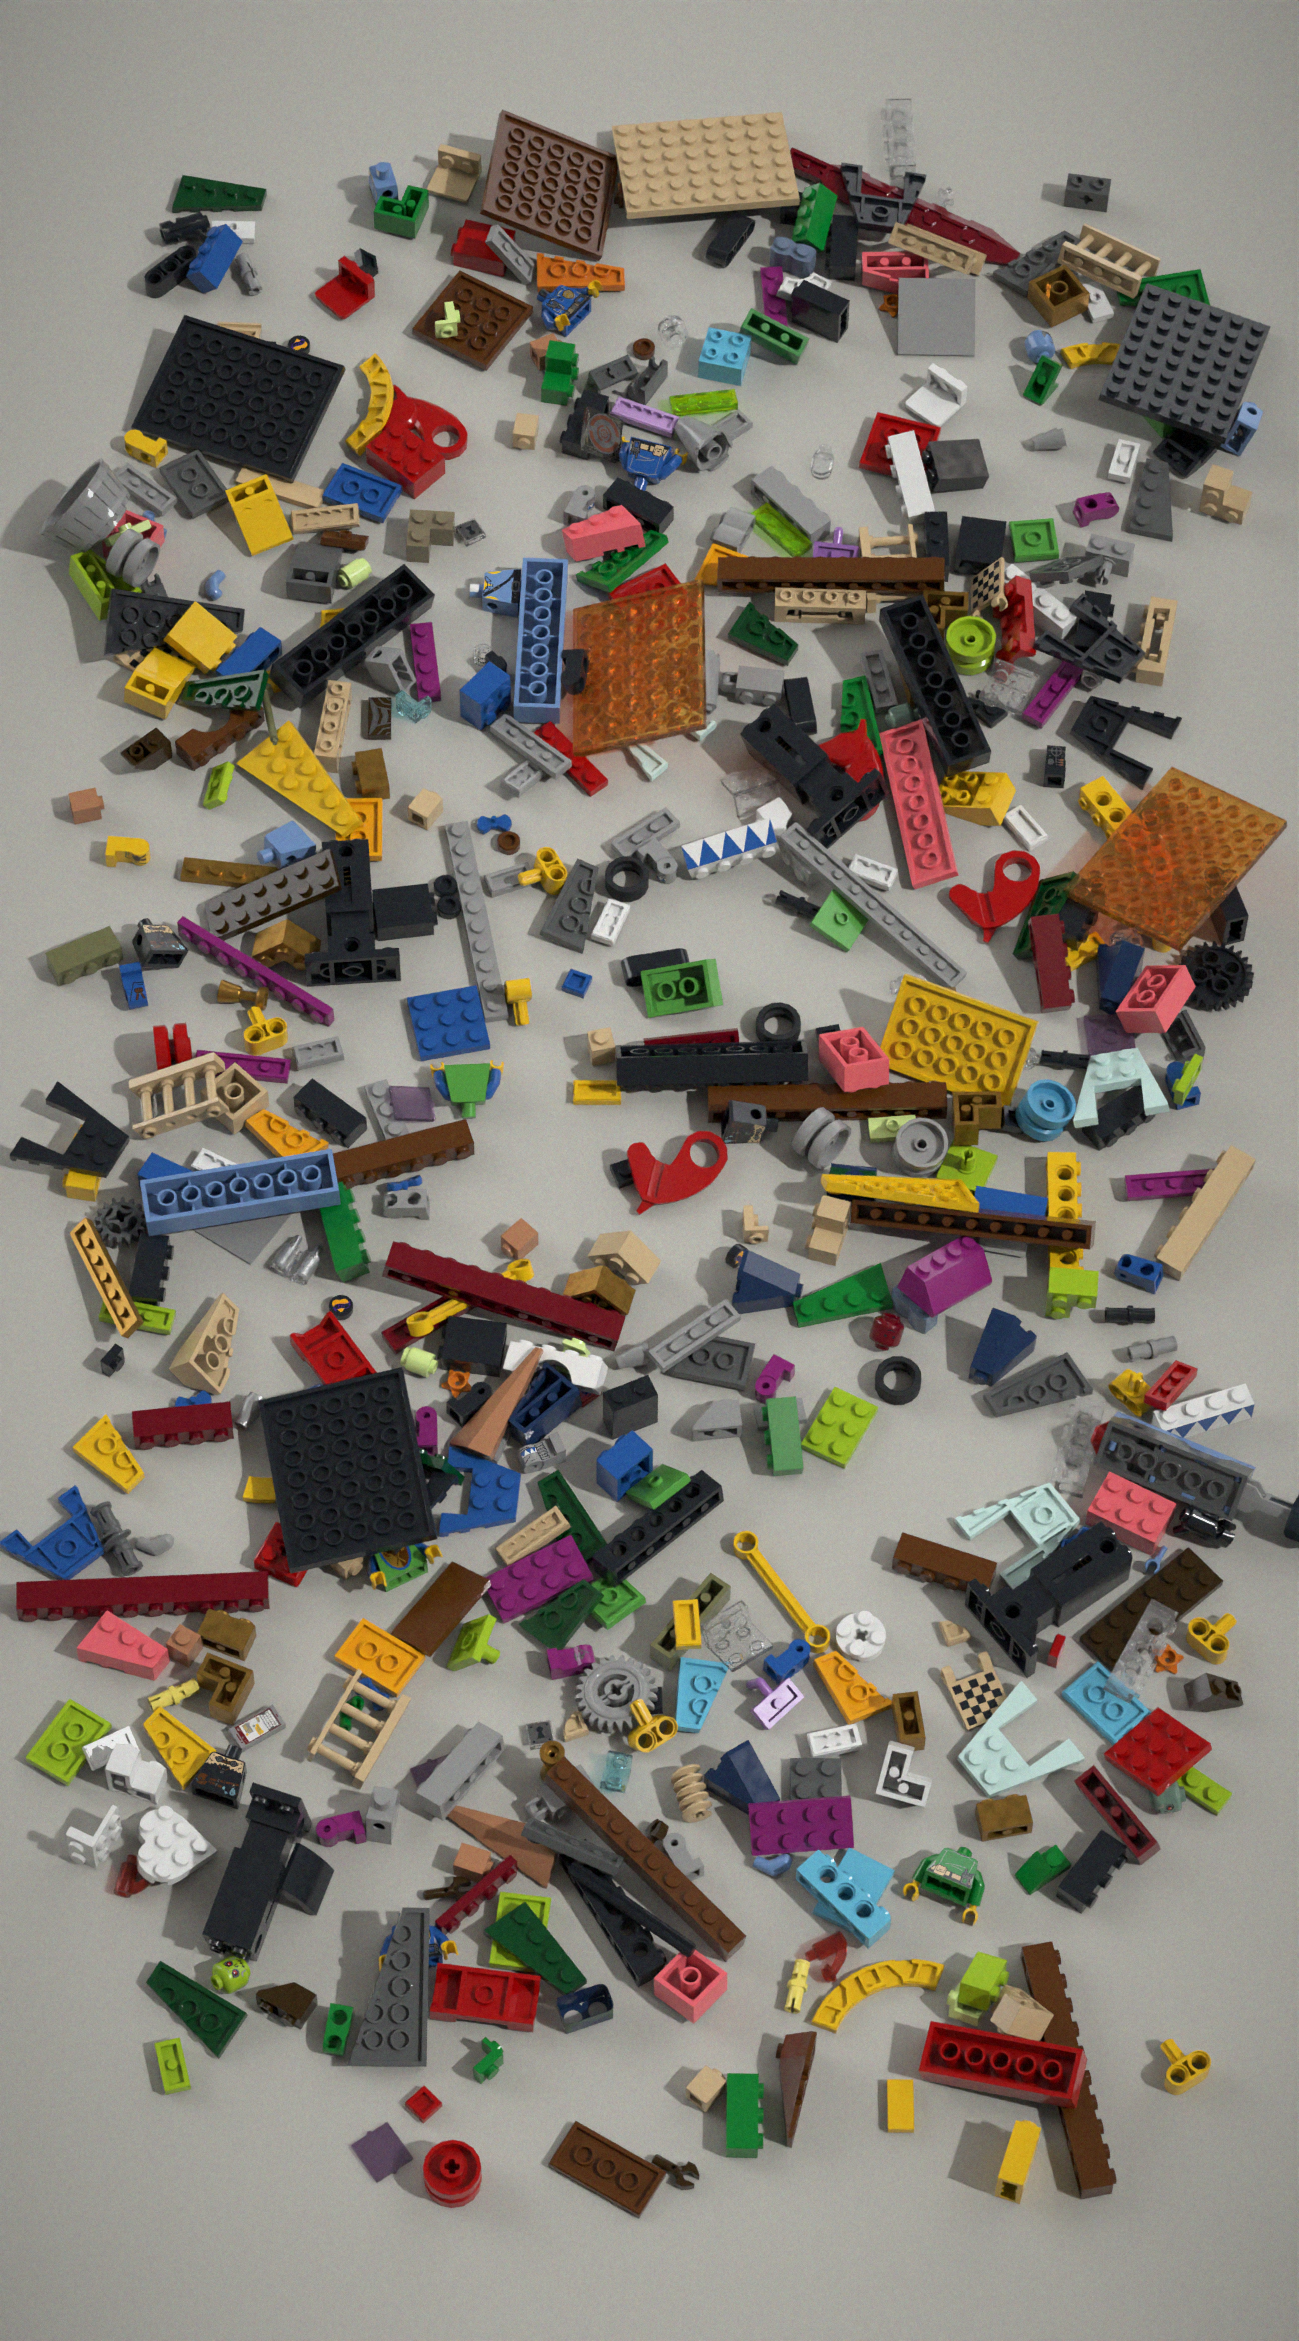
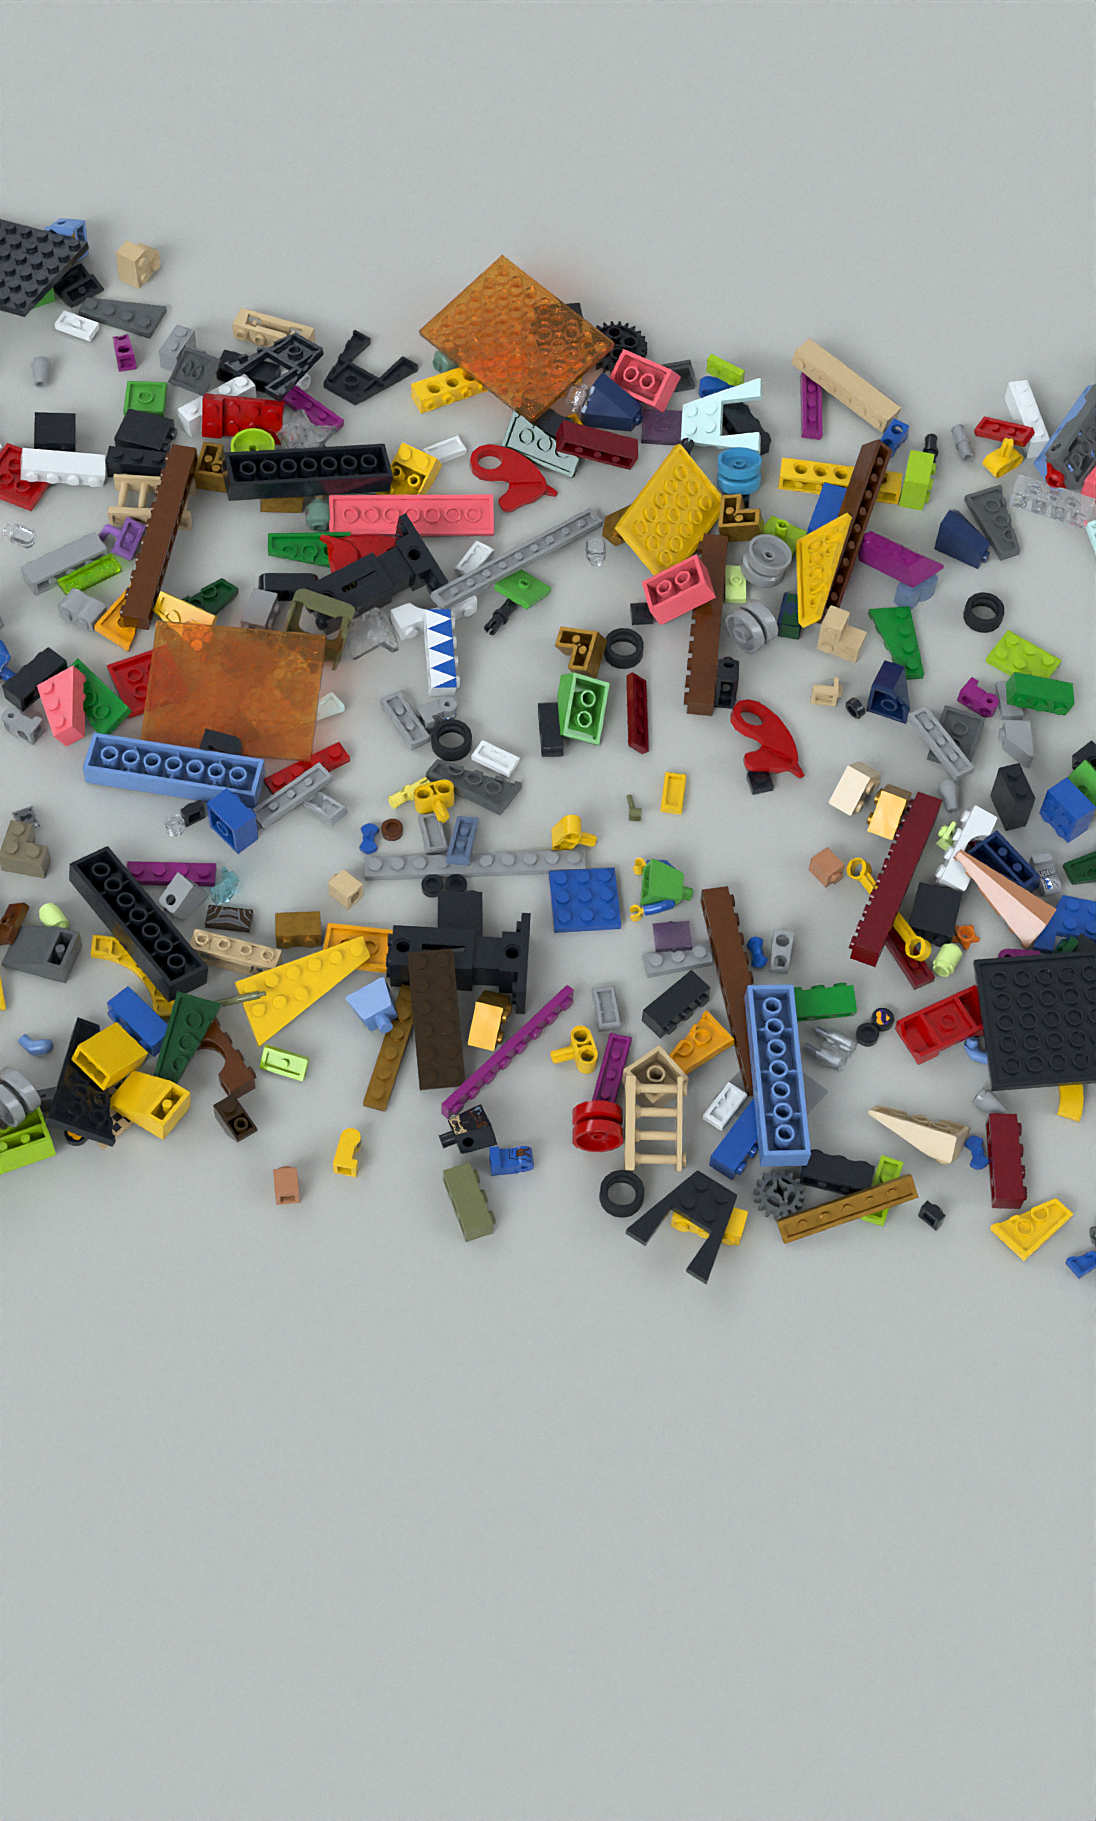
camera: 85 degrees left, 0 degrees up
(108, 1102) = (629, 1178): none -> black tyre
(234, 993) = (530, 1073): pearl gold piece -> none
(320, 1295) = (867, 1034): none -> black tile
(468, 1405) = (992, 924): black leg -> none
(496, 899) = (462, 840): none -> sand blue plate
(499, 592) = (107, 799): medium blue torso -> none
(545, 840) = (406, 794): none -> light yellow pin
(564, 1055) = (634, 813): none -> olive hand
(577, 983) = (555, 794): blue tile -> none
(601, 1046) = (631, 779): tan brick -> none
(711, 1063) = (666, 695): black brick -> none
(732, 728) = (327, 606): none -> olive piece
(736, 613) = (177, 610): none -> yellow wing
(757, 983) = (584, 647): none -> pearl gold brick
(820, 605) = (183, 556): tan brick -> none
(878, 680) = (260, 527): light grey plate -> none
(886, 1331) = (940, 610): dark red head -> none
(988, 589) = (196, 427): tan flag -> none
(1055, 766) = (387, 419): black leg -> none

